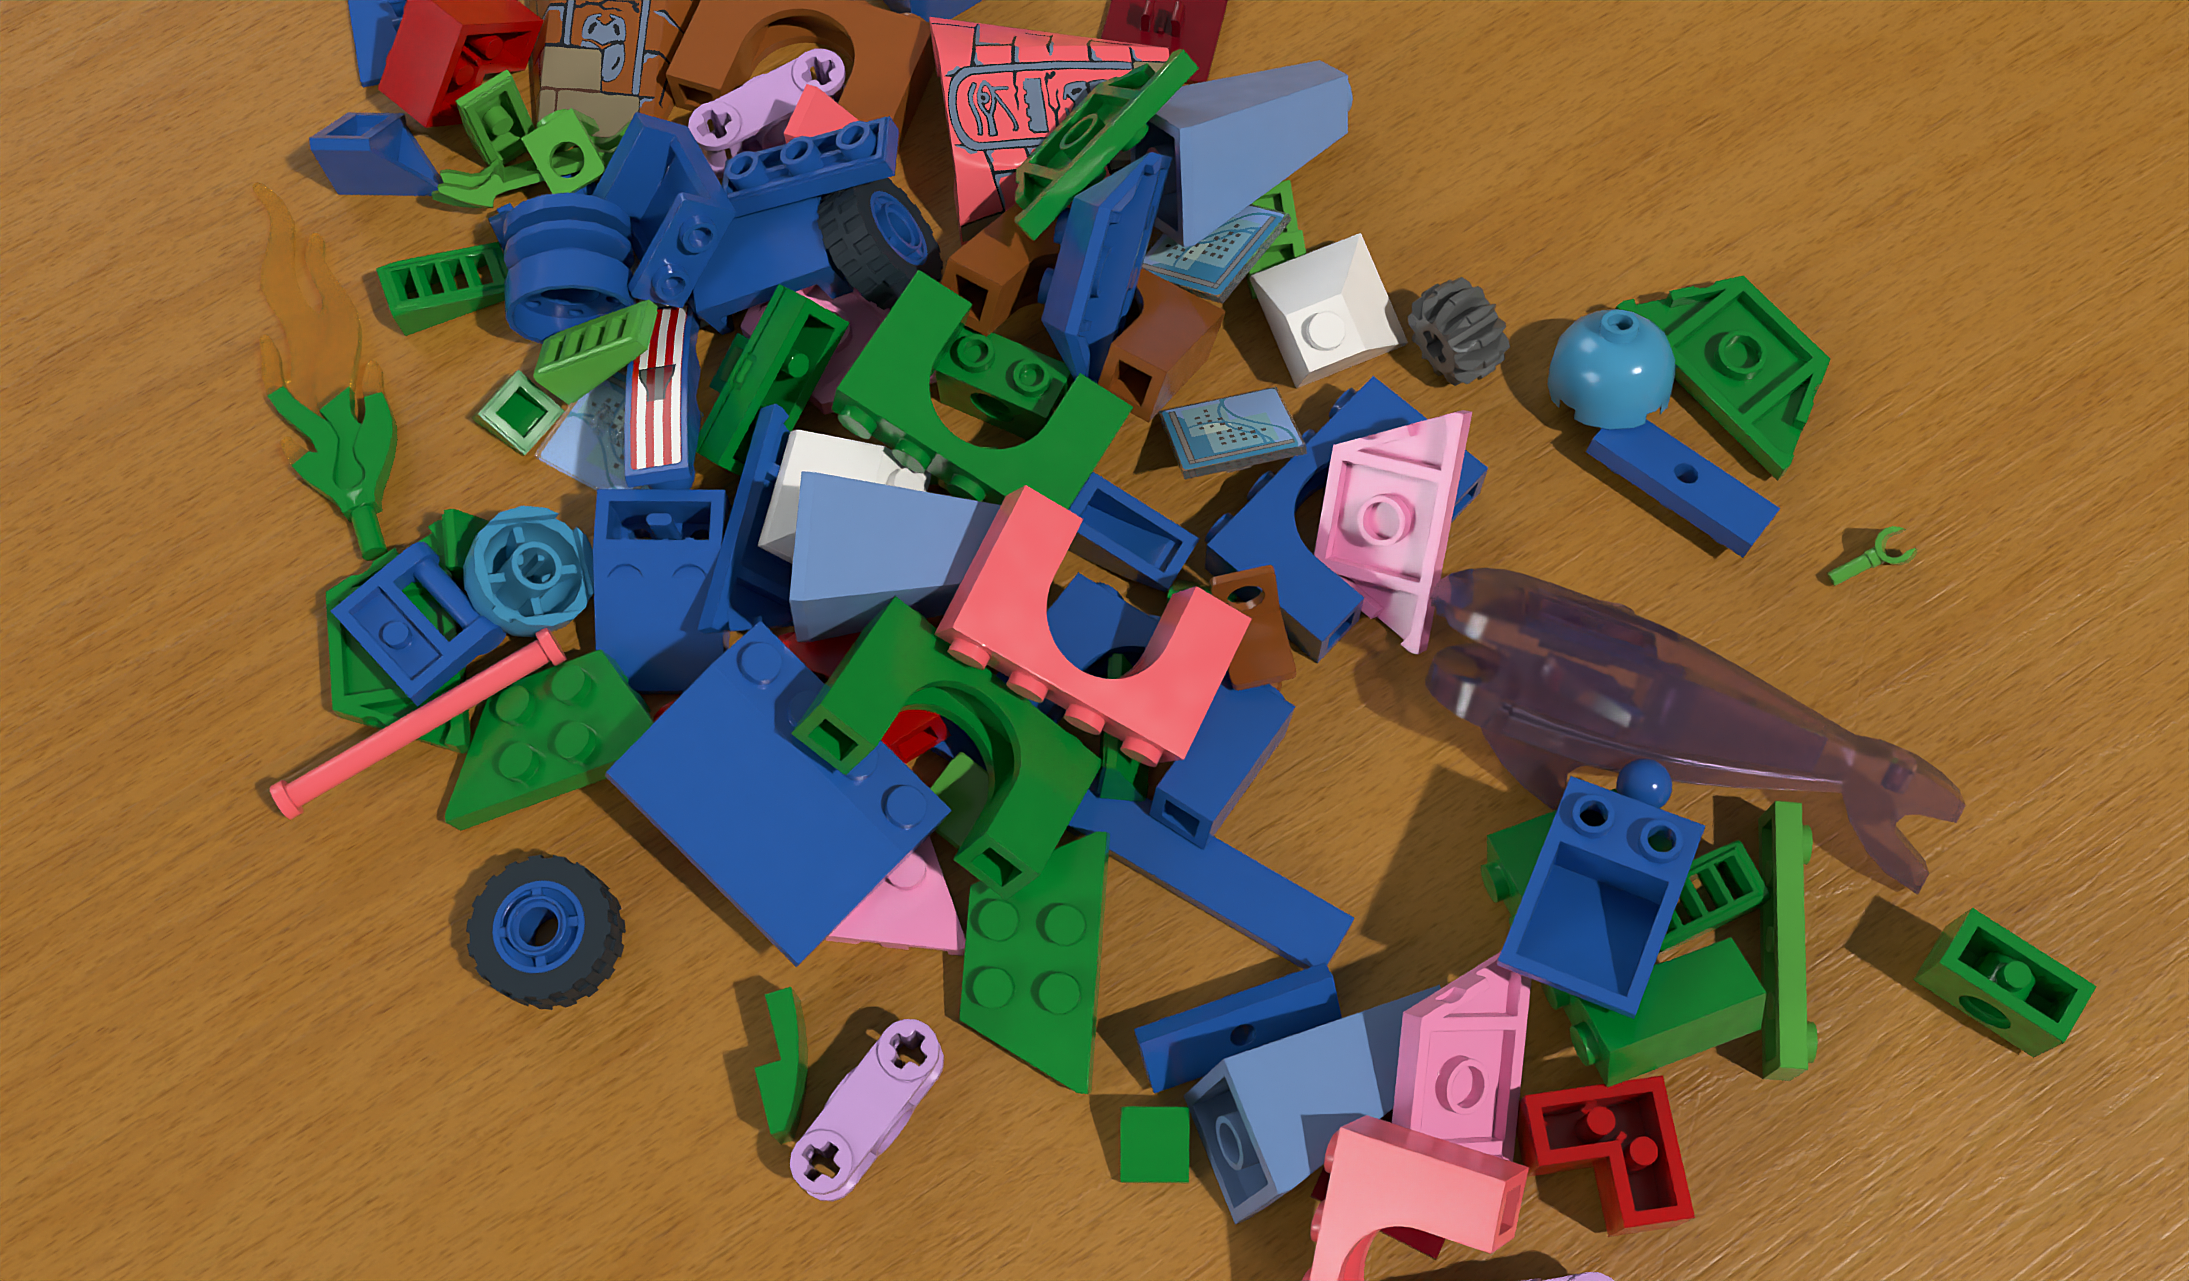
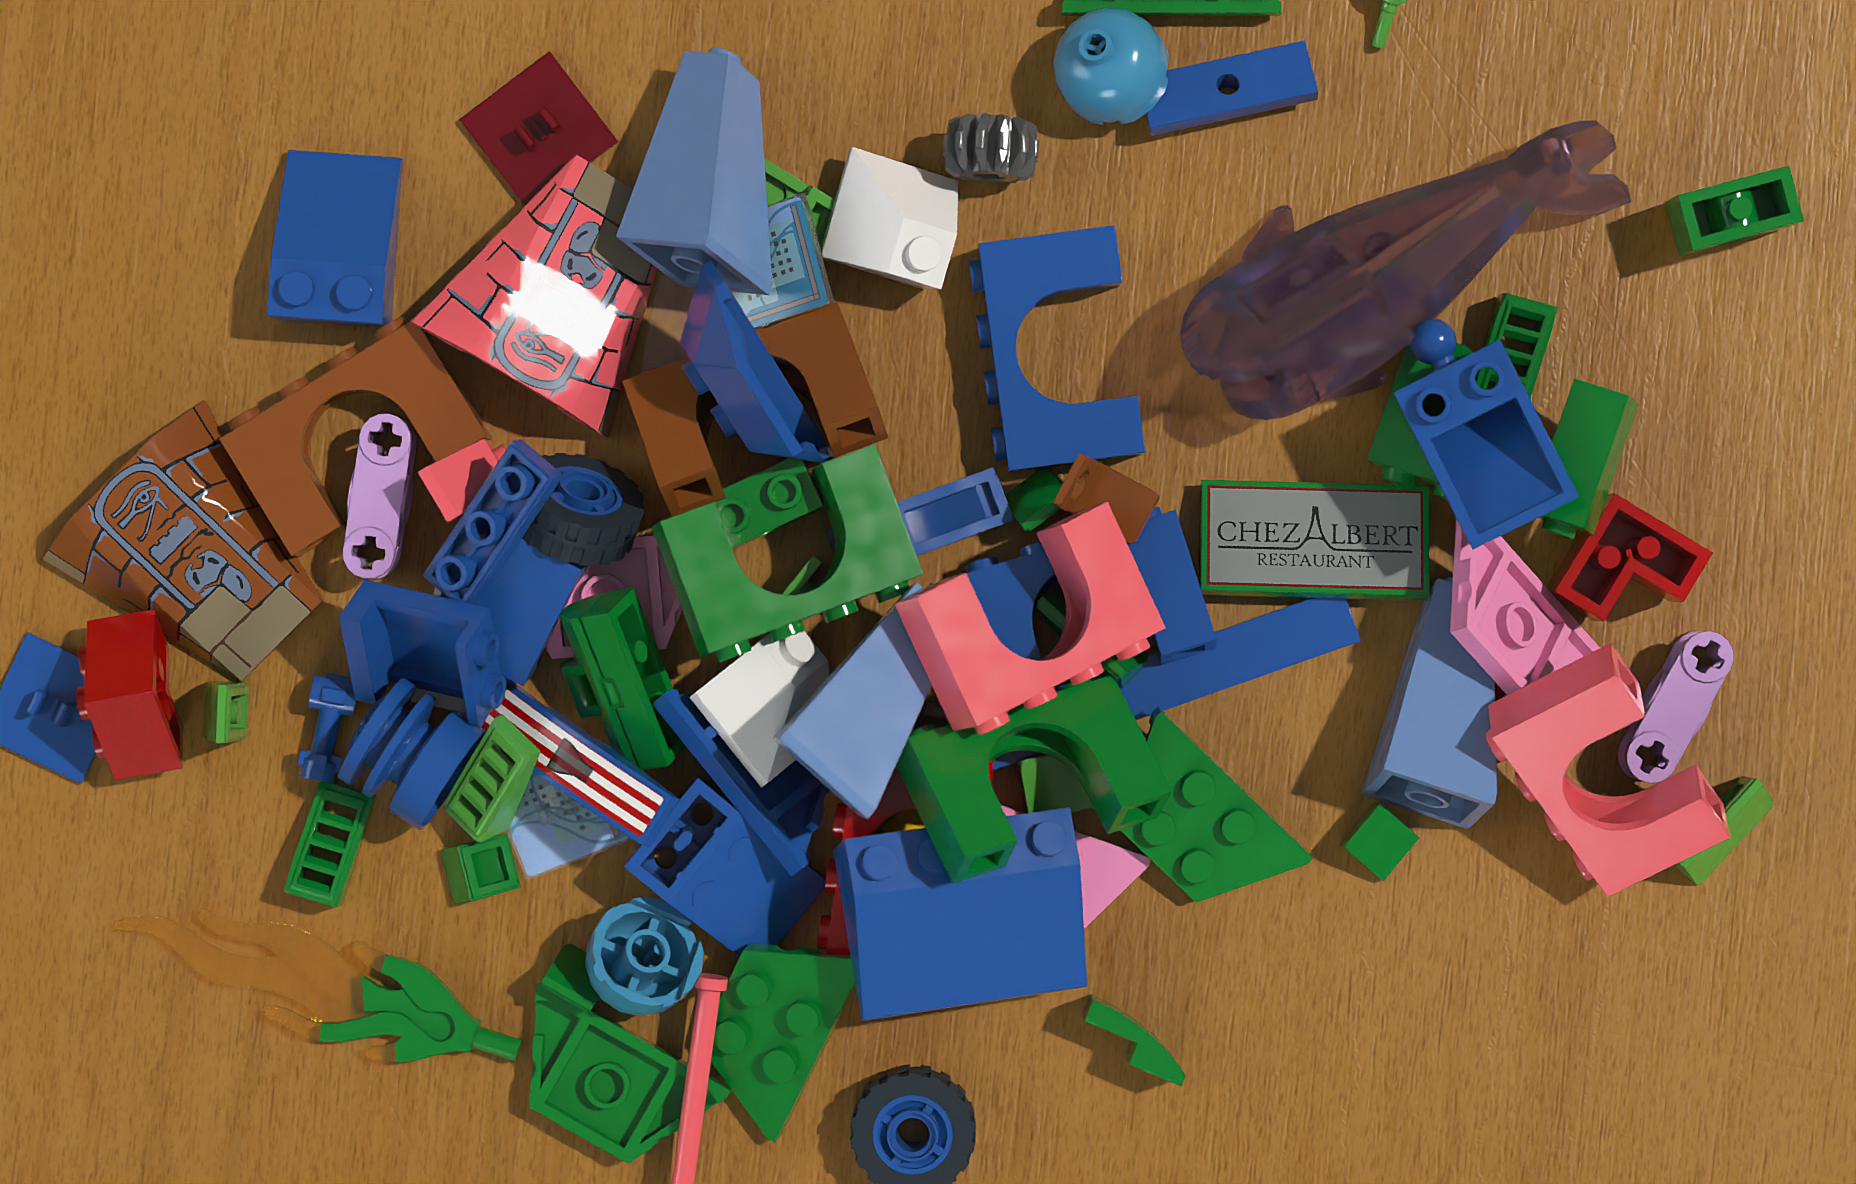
camera: 55 degrees left, 20 degrees up
(374, 156) = (165, 815): blue slope -> none
(403, 637) = (619, 1079): blue plate -> none
(481, 188) = (274, 741): bright green piece -> none
(557, 134) = (280, 673): bright green bracket -> none
(867, 1110) = (1210, 1009): lavender piece -> none
(1081, 146) = (642, 306): green wing -> none
(1200, 1038) = (1351, 725): blue tile -> none
(1231, 433) = (932, 374): piece -> none
(1375, 859) = (1314, 540): none -> light grey tile
(1392, 518) = (1097, 327): bright pink wing -> none
(1787, 1036) = (1647, 376): bright green plate -> none

